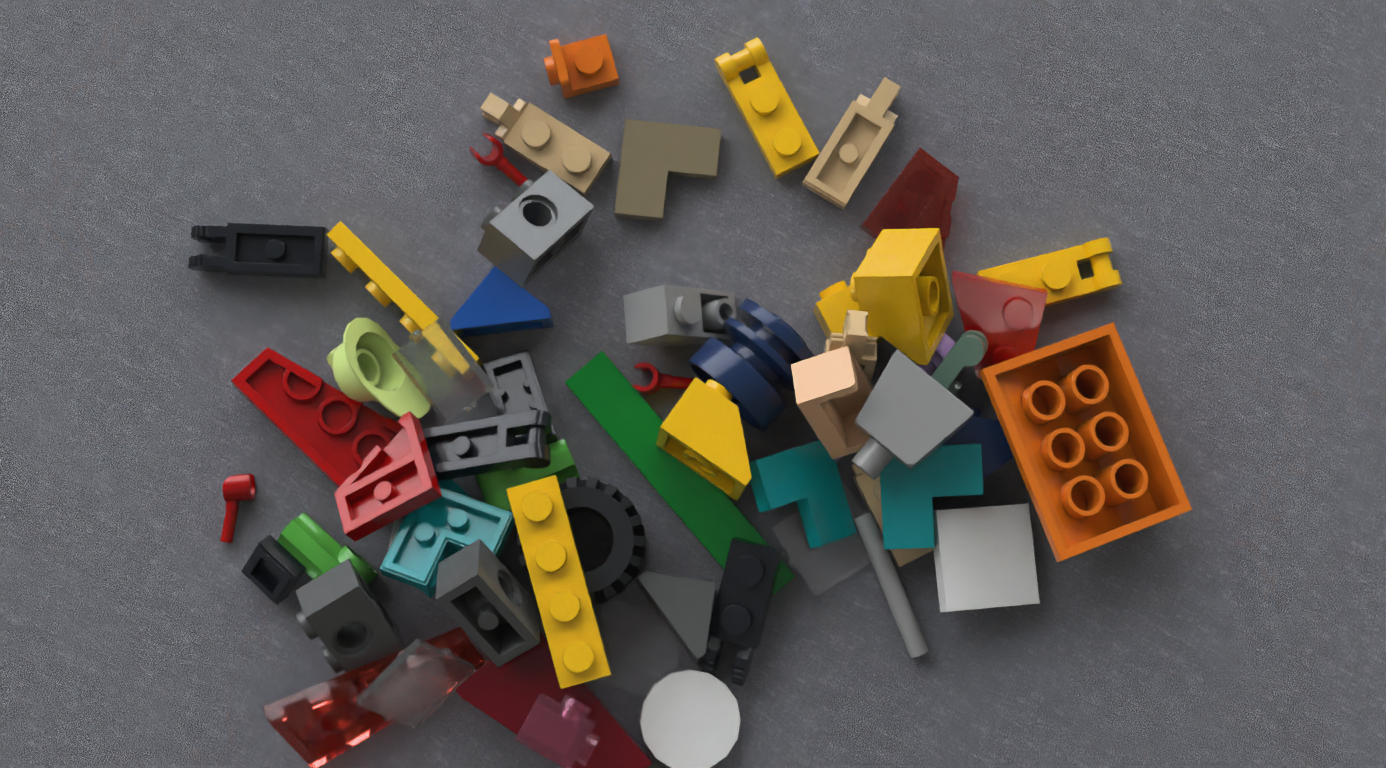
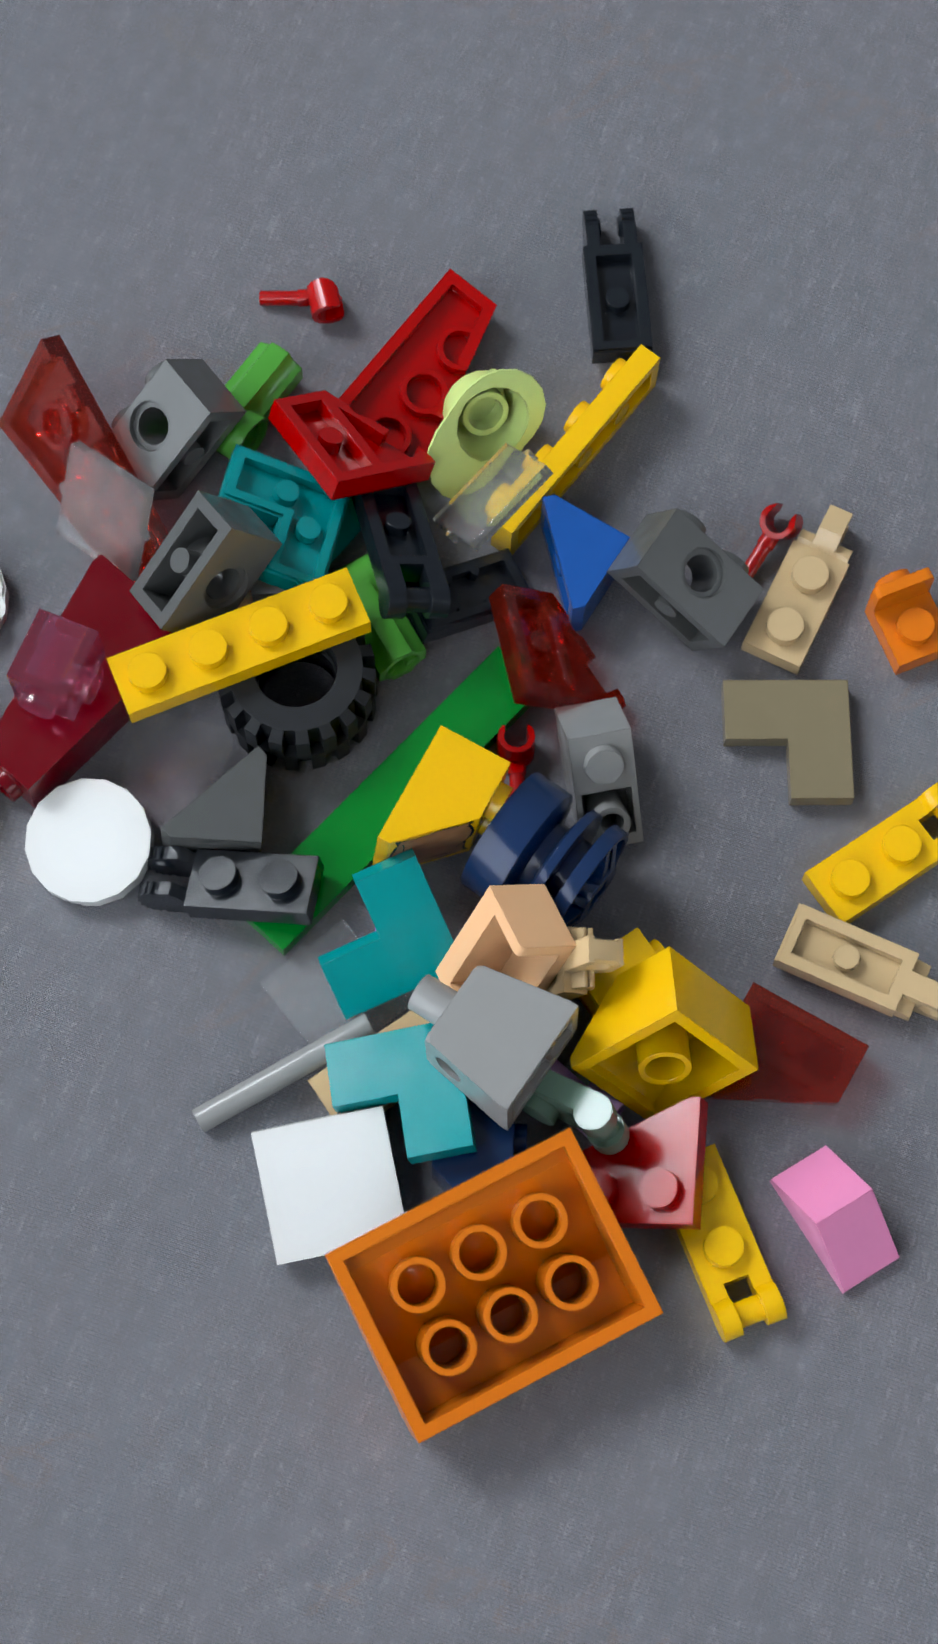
camera: 80 degrees right, 10 degrees down
(273, 569) = (231, 345): black tile -> none
(579, 345) = (543, 651): none -> clear red wing
(1036, 192) = (837, 1217): none -> bright pink slope

